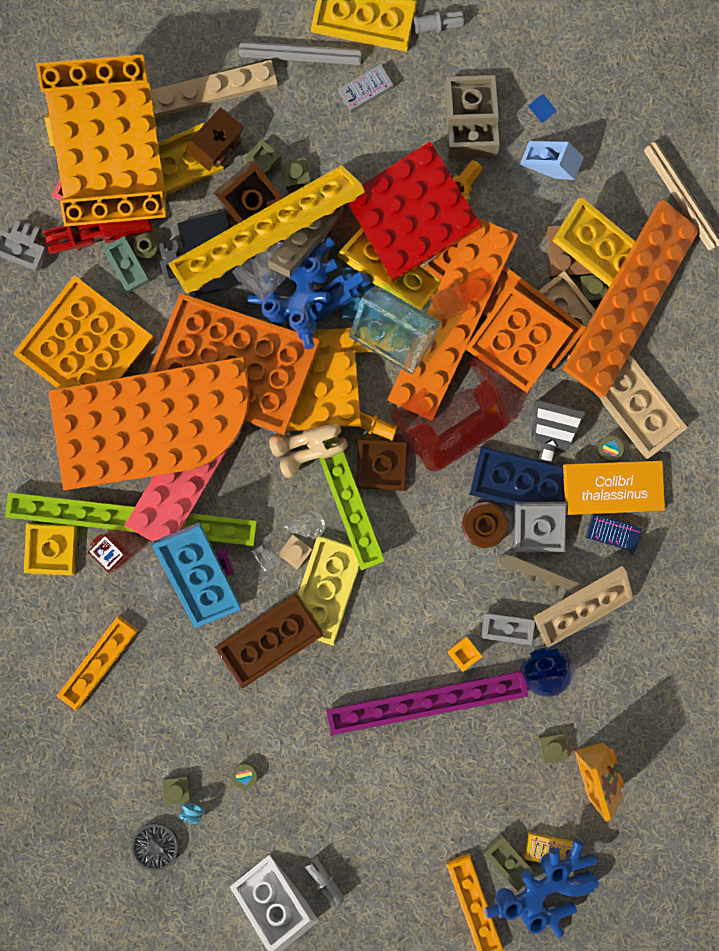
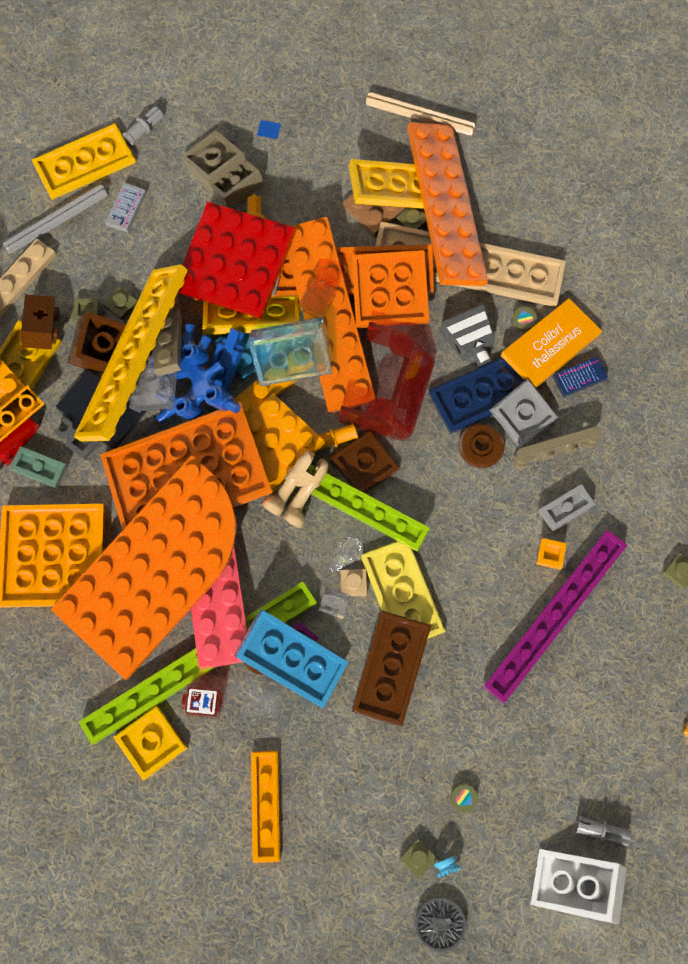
camera: 45 degrees left, 15 degrees down
(150, 251) = (44, 449): olive plate -> none
(547, 671) = (625, 513): clear blue cylinder -> none
(553, 159) = (306, 154): light blue slope -> none
(584, 607) = (608, 443): tan tile -> none

